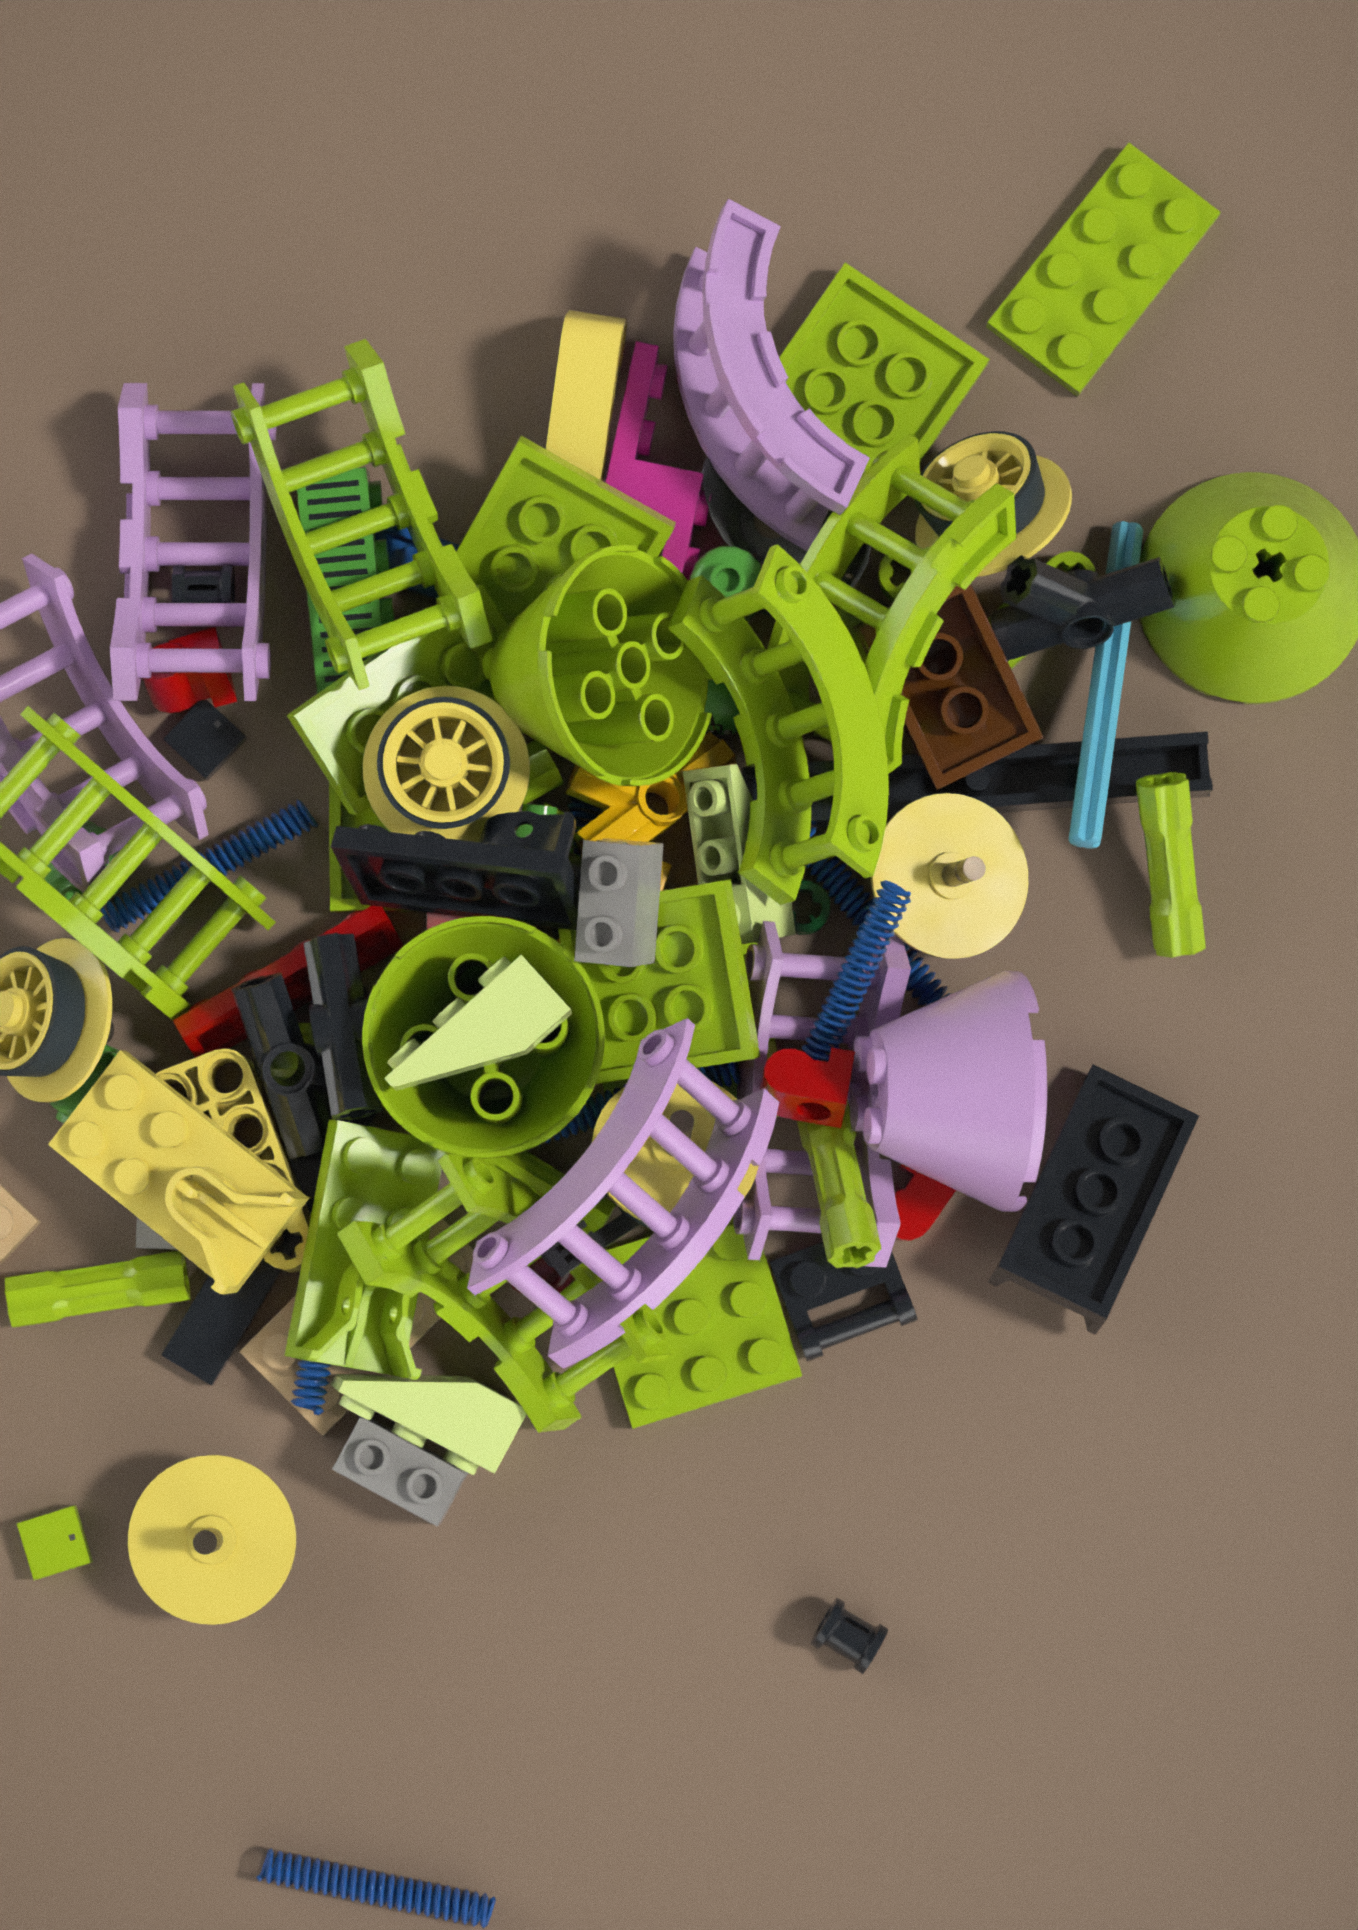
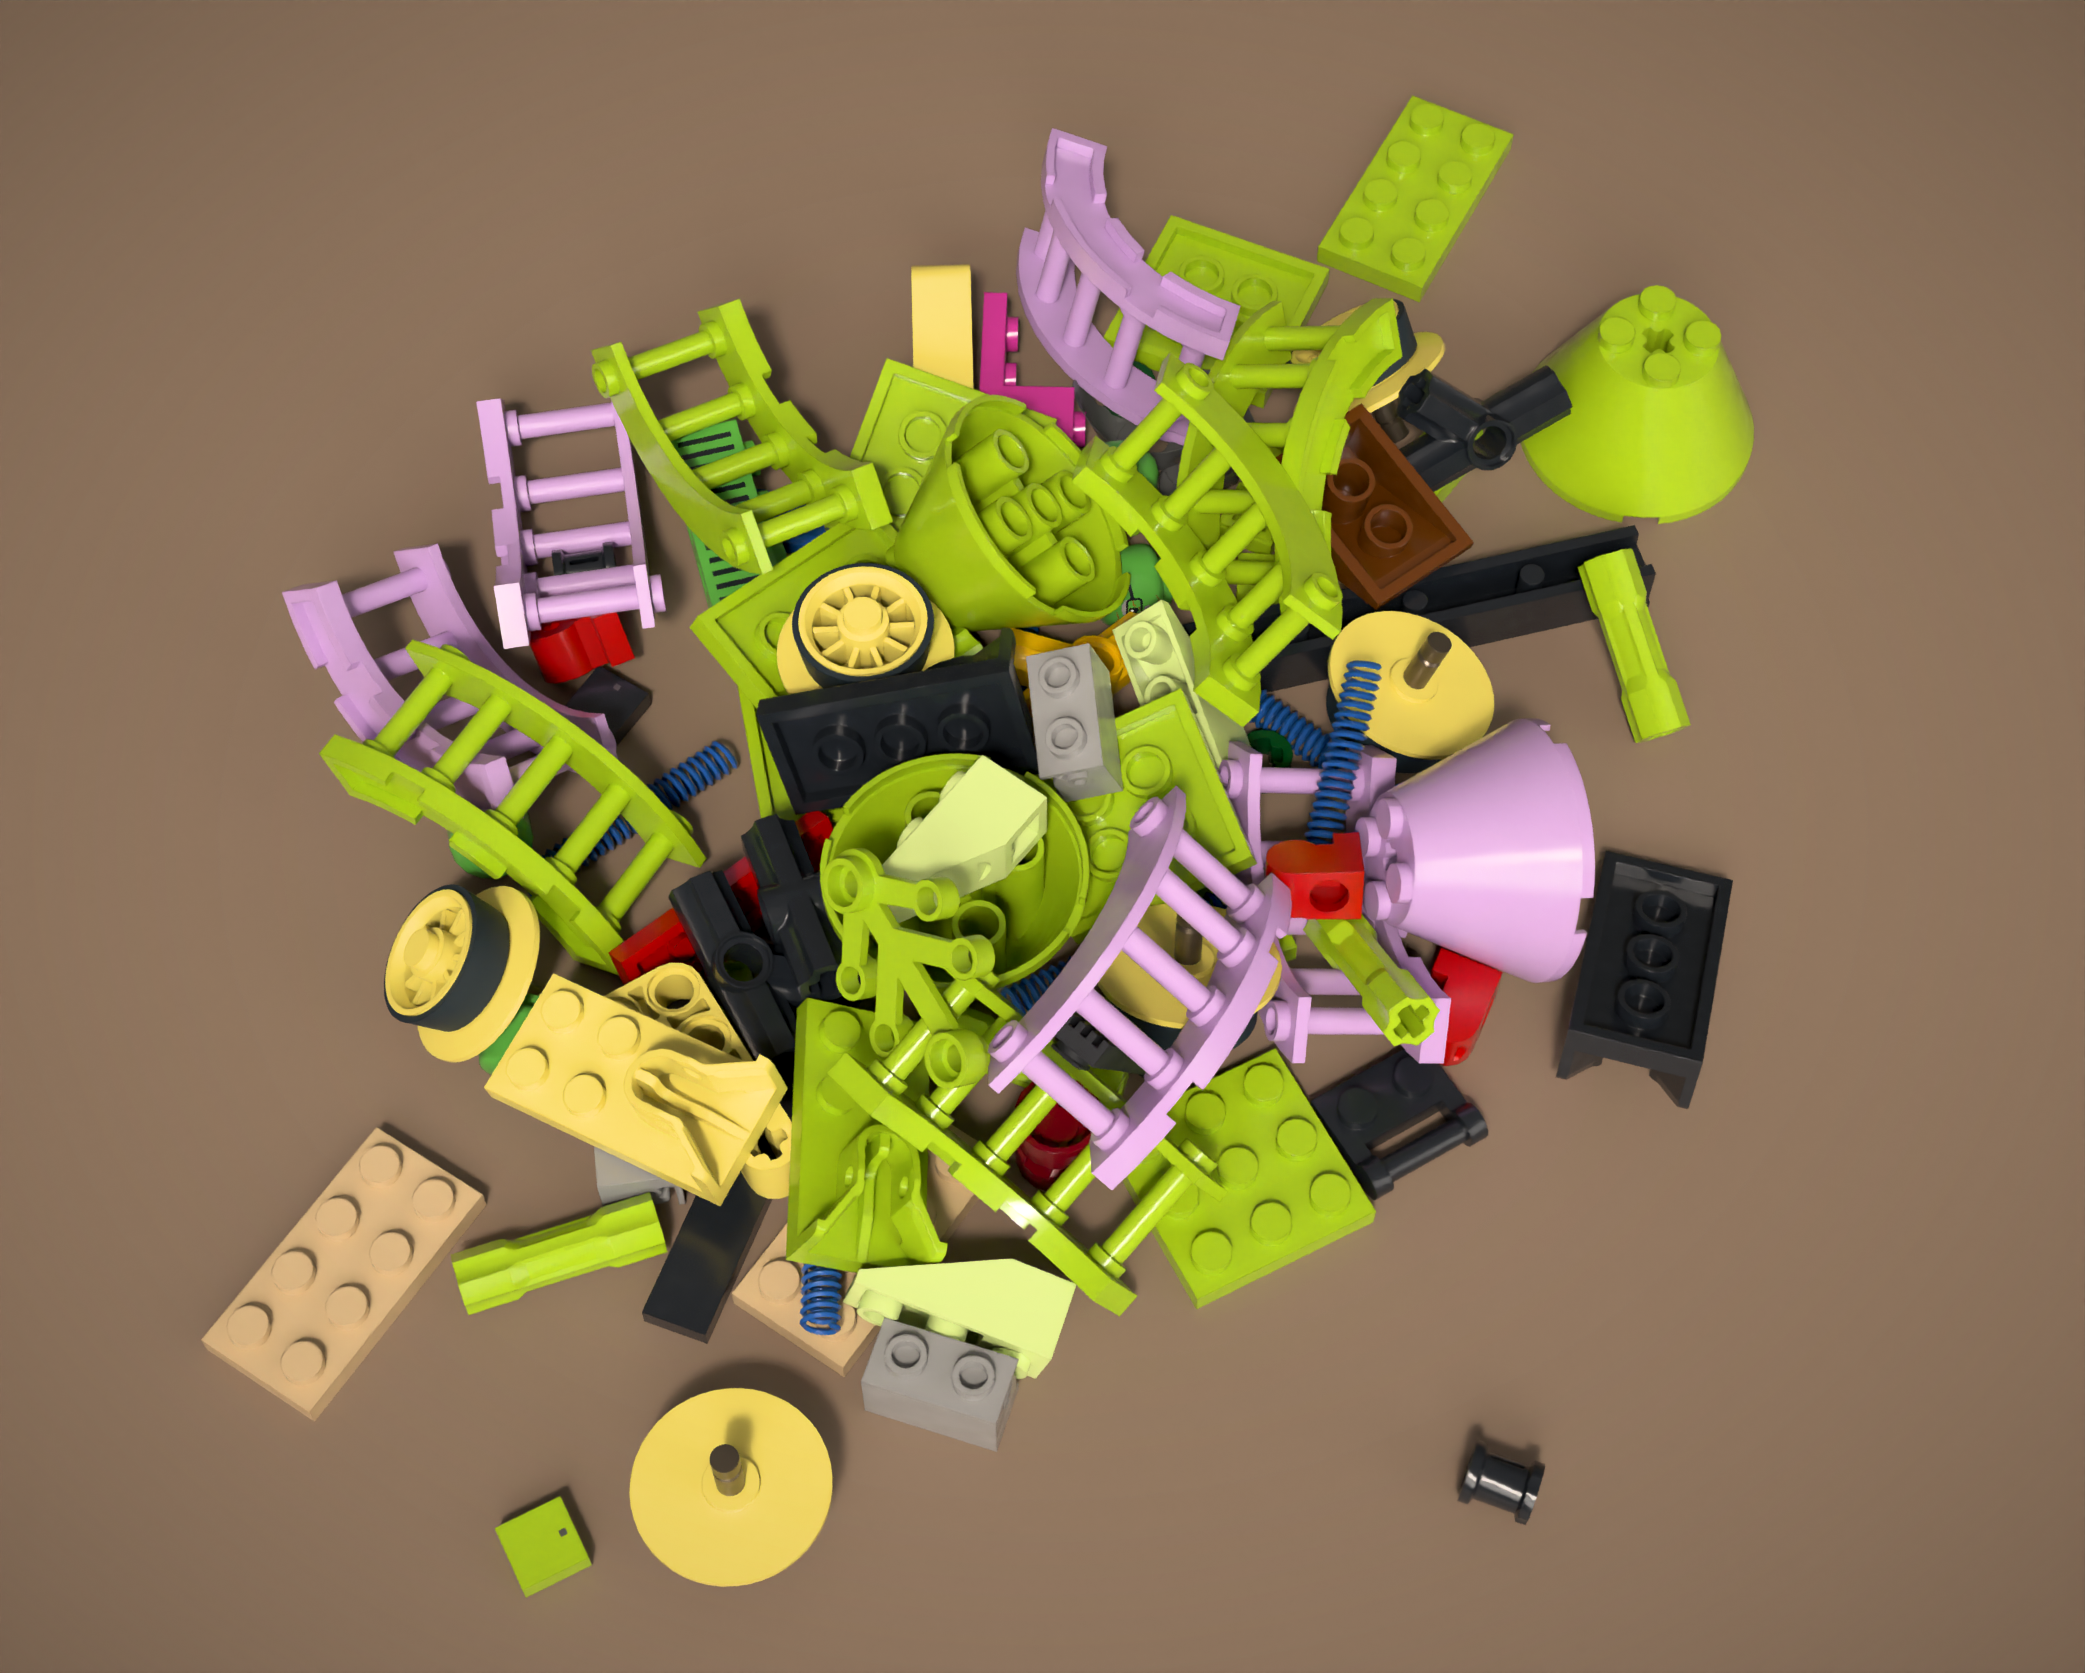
camera: 10 degrees left, 25 degrees down
(388, 1090) = (861, 892): none -> lime plant
(1103, 706) = (1528, 533): medium azure axle -> none

